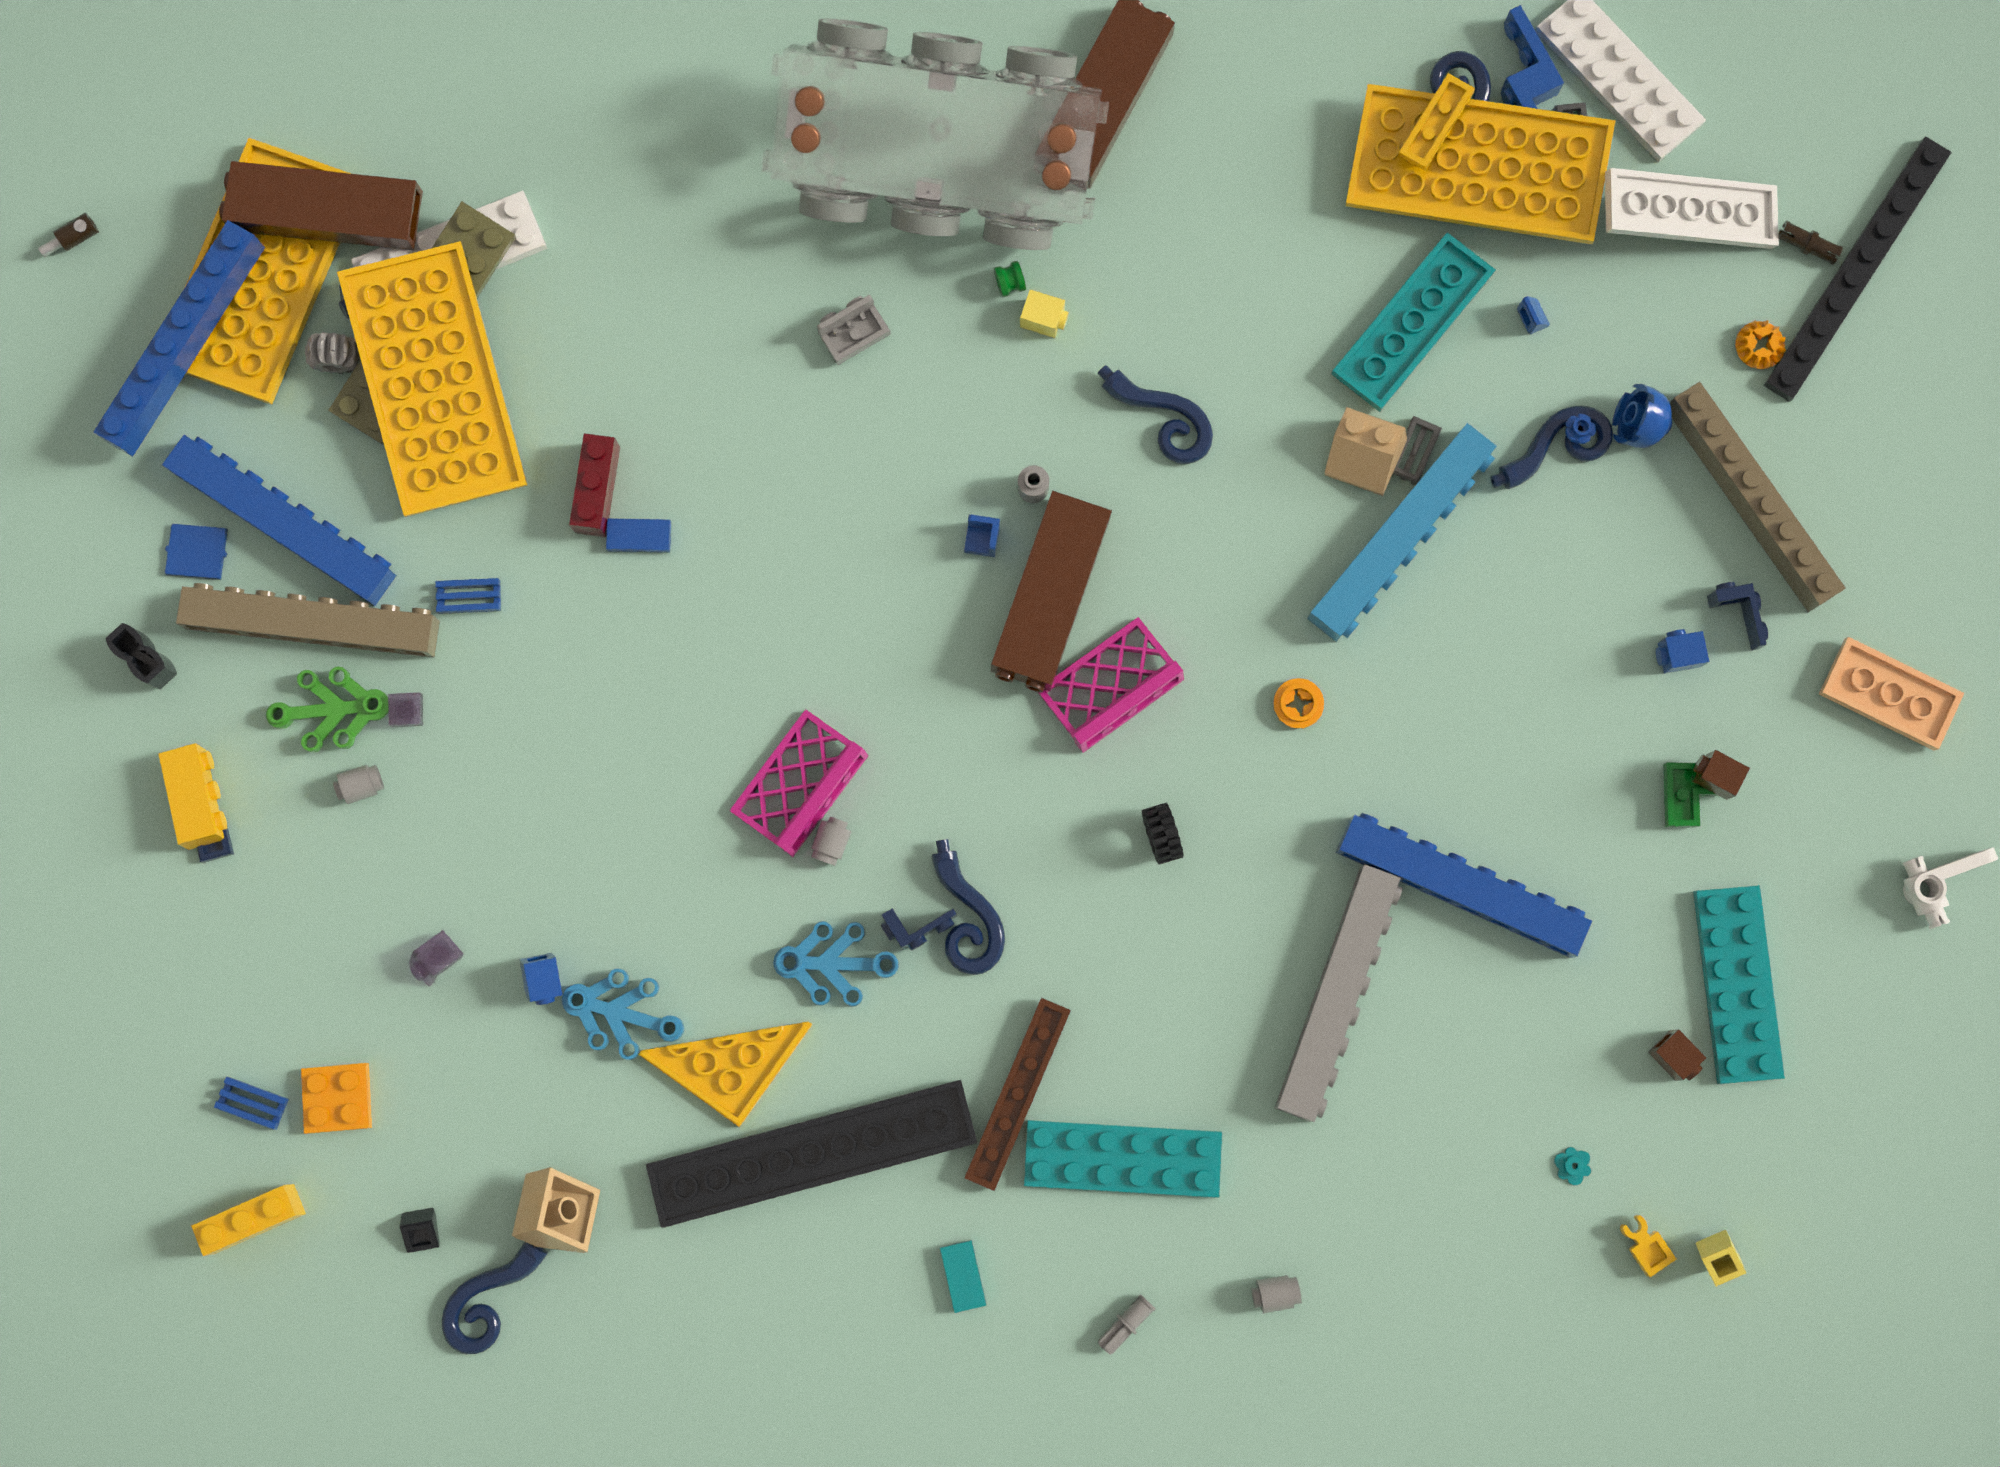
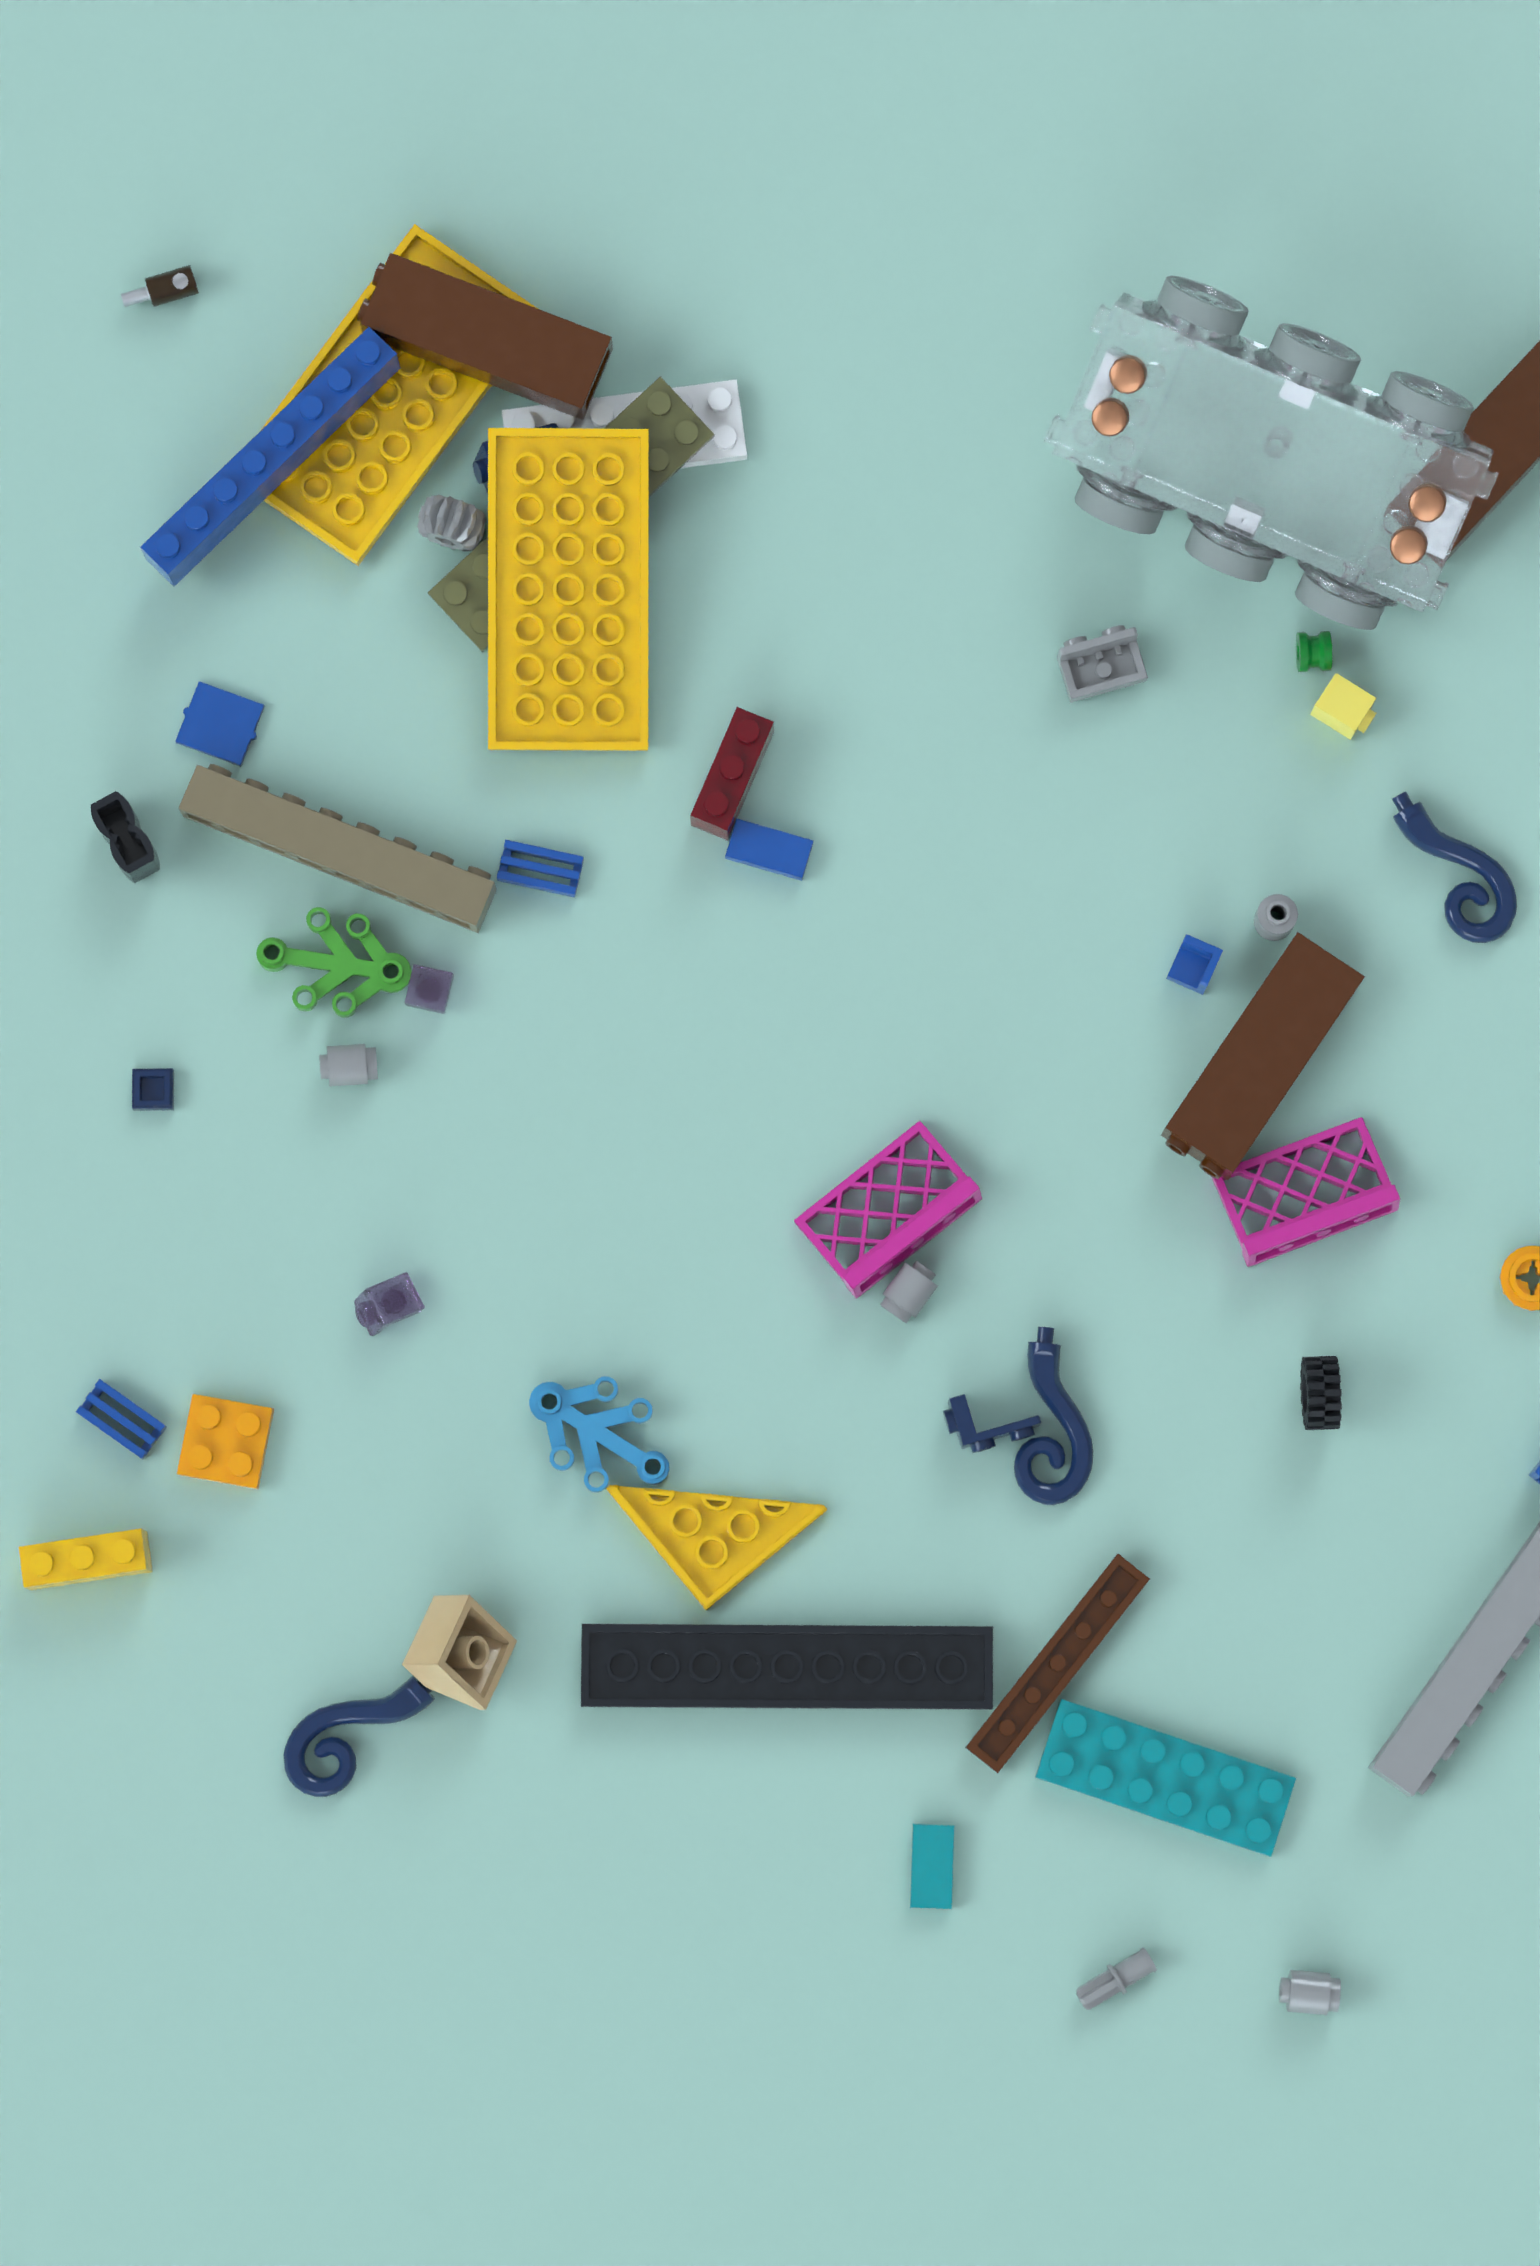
camera: 15 degrees right, 0 degrees up
(193, 796) = (145, 1025): yellow brick -> none
(280, 520) = (334, 713): blue brick -> none
(419, 1230) = (286, 1629): black slope -> none
(541, 978) = (512, 1363): blue brick -> none
(830, 962) = (868, 1441): dark azure plant -> none

